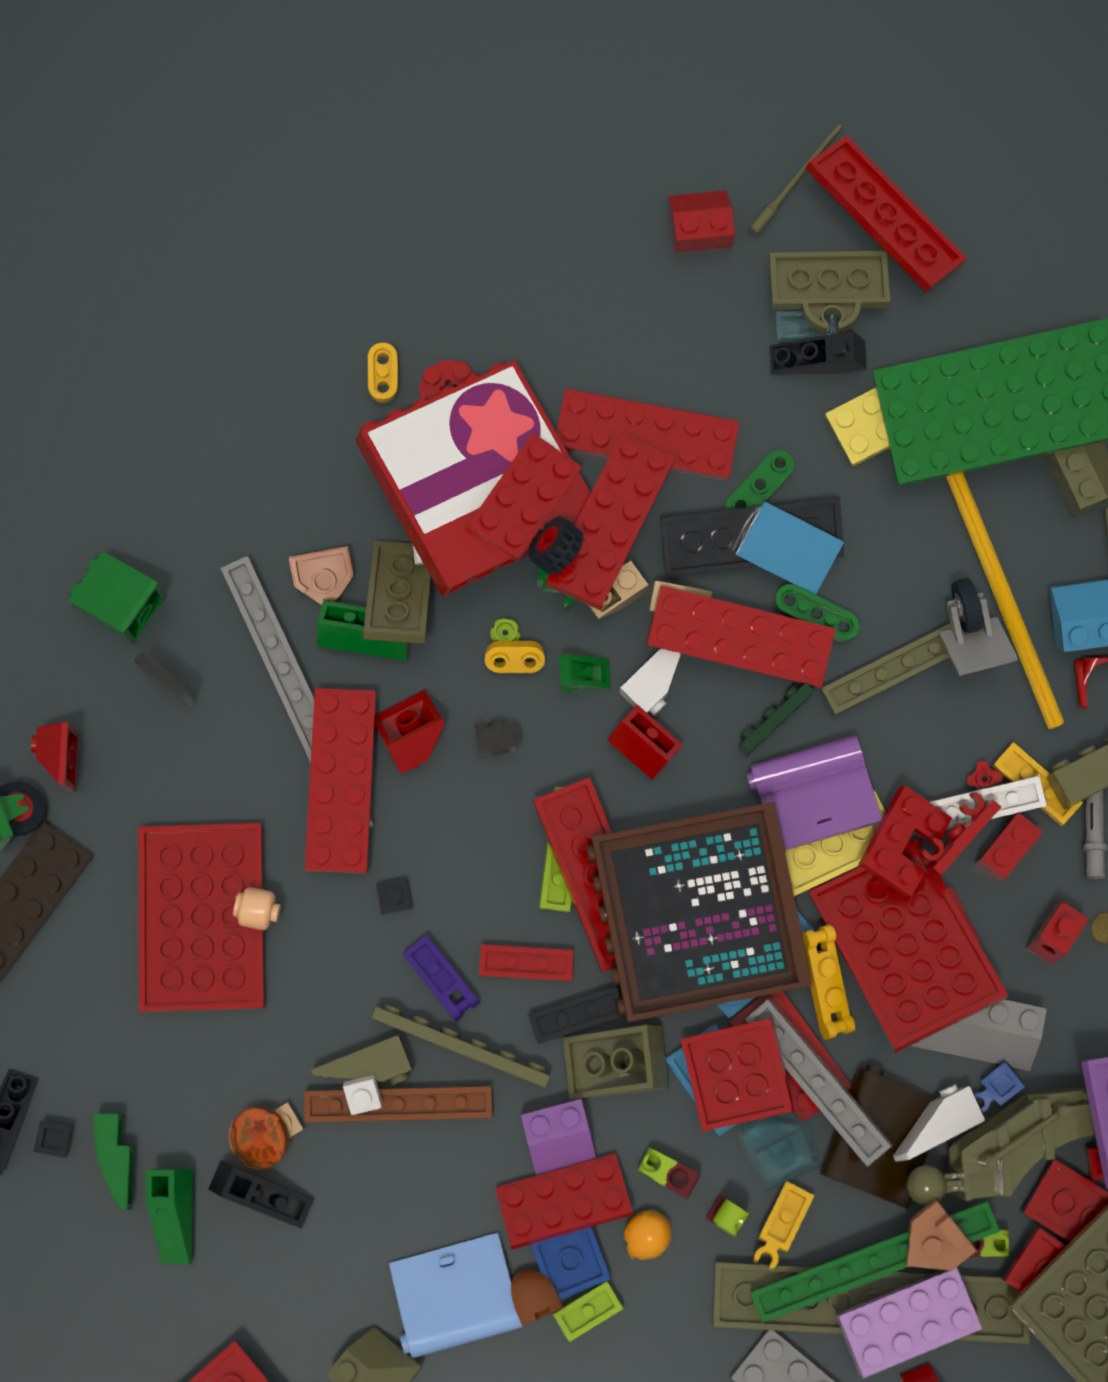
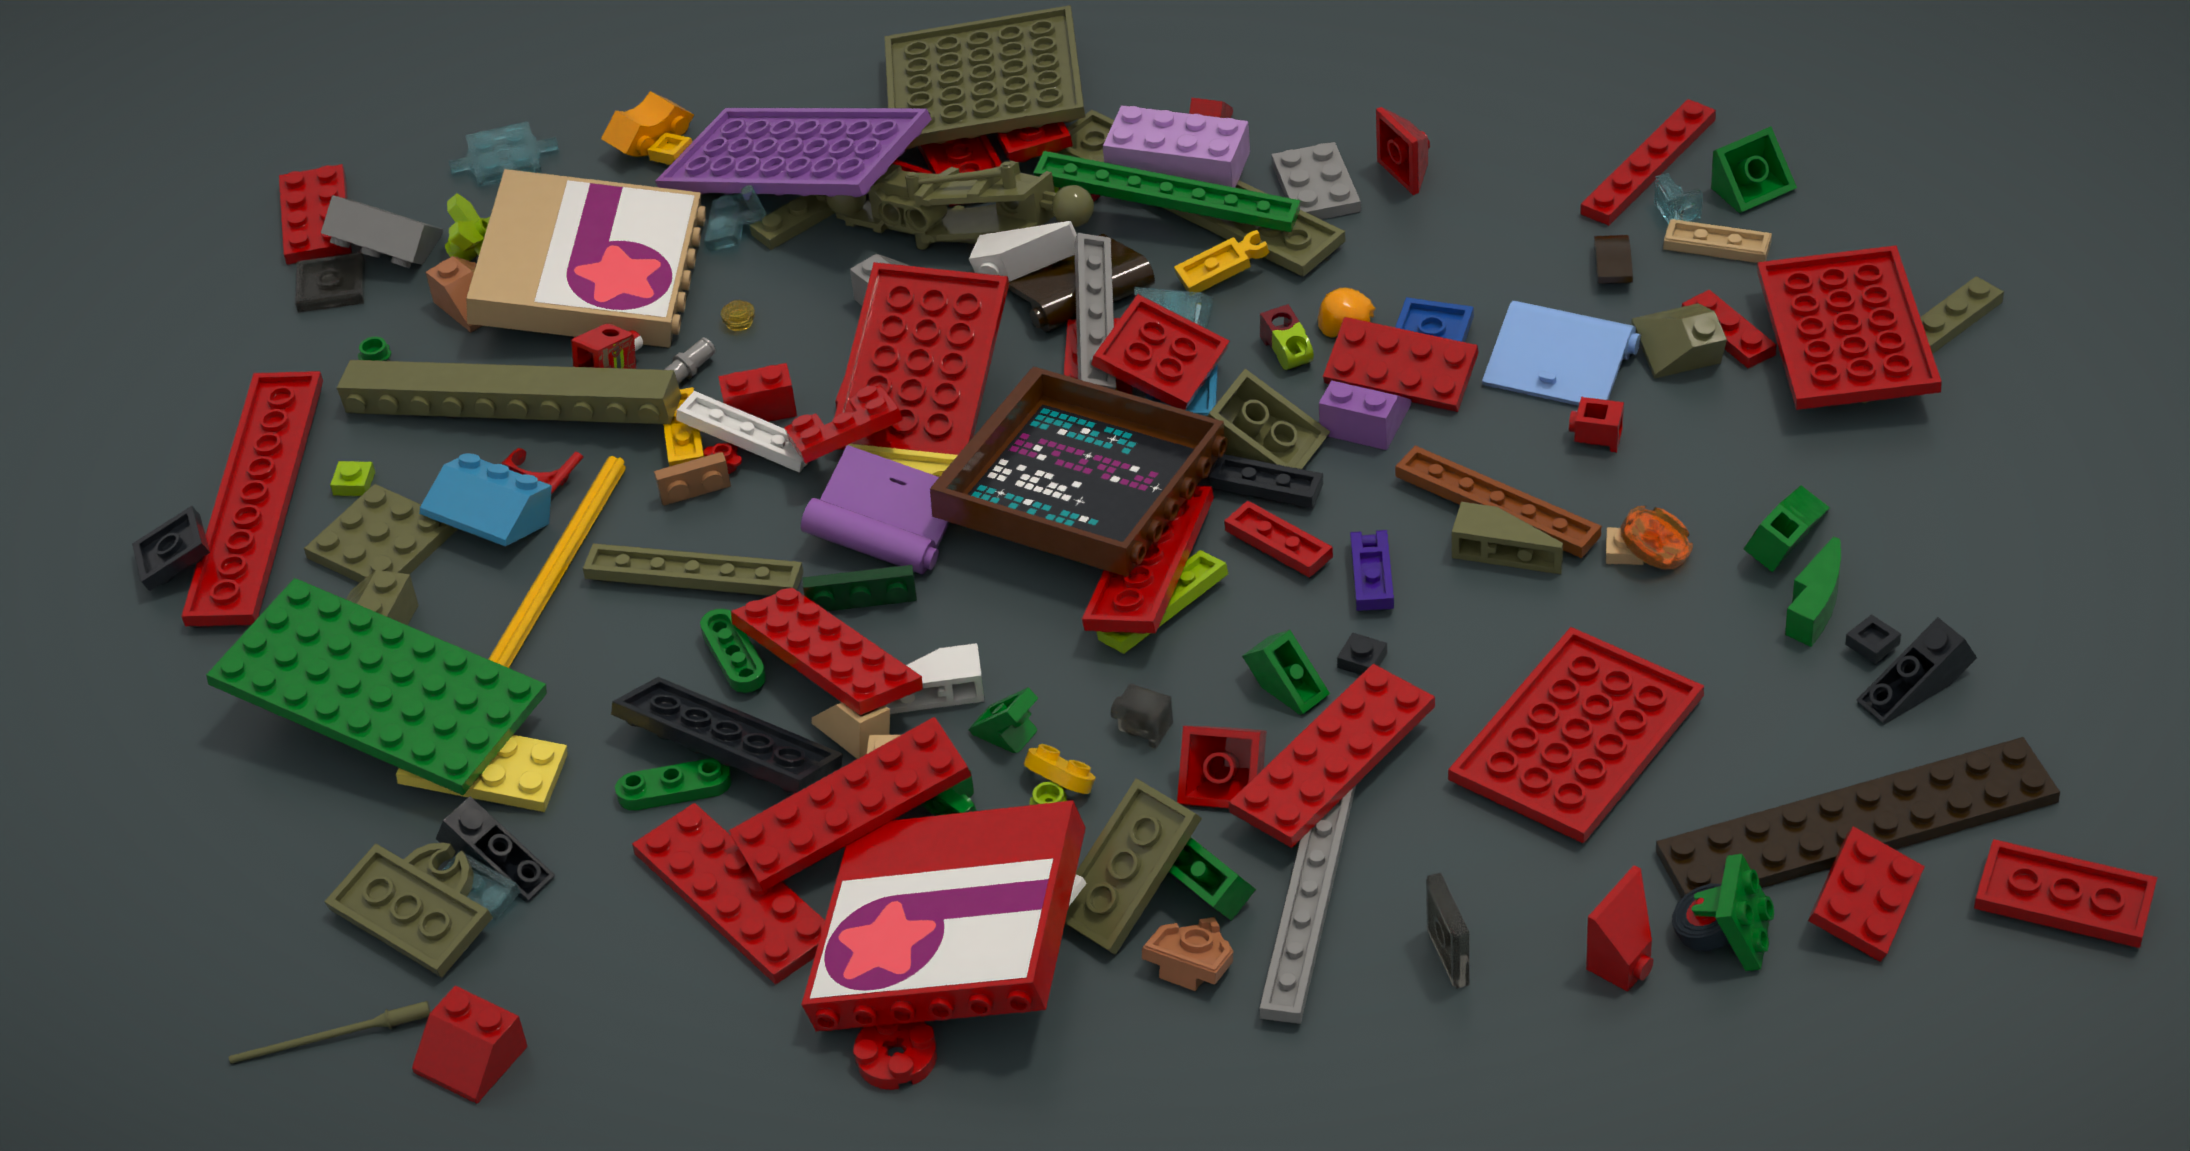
camera: 135 degrees left, 35 degrees down
(117, 596) = (1439, 1040): green slope -> none
(256, 908) = (1511, 690): light nougat head -> none
(260, 1194) = (1696, 501): black slope -> none
(362, 1095) = (1525, 505): white plate -> none
(364, 1236) = (1598, 422): none -> red brick
(382, 374) = (948, 1107): yellow plate -> none
(429, 838) = (1286, 672): none -> green slope
(449, 1040) = (1400, 509): olive plate -> none
(524, 497) = (917, 856): red plate -> none
(533, 1296) = (1486, 312): dark orange brick -> none
(555, 545) = (923, 768): black wheel -> none
(587, 1311) = (1448, 289): lime plate -> none
(644, 742) = (1001, 628): red brick -> none
(727, 1215) = (1261, 282): lime leg -> none
(789, 547) = (702, 699): dark azure tile -> none
(827, 983) = (986, 405): yellow plate -> none
(886, 213) = (285, 934): red plate -> none
(936, 1240) = (1102, 163): nougat plate -> none
(960, 834) = (791, 398): red plate -> none
(974, 637) = (614, 531): light grey plate -> none
(988, 728) = (692, 478): none -> medium nougat plate
(1000, 1085) = (945, 258): blue plate -> none
(1057, 931) = (778, 319): red torso -> none

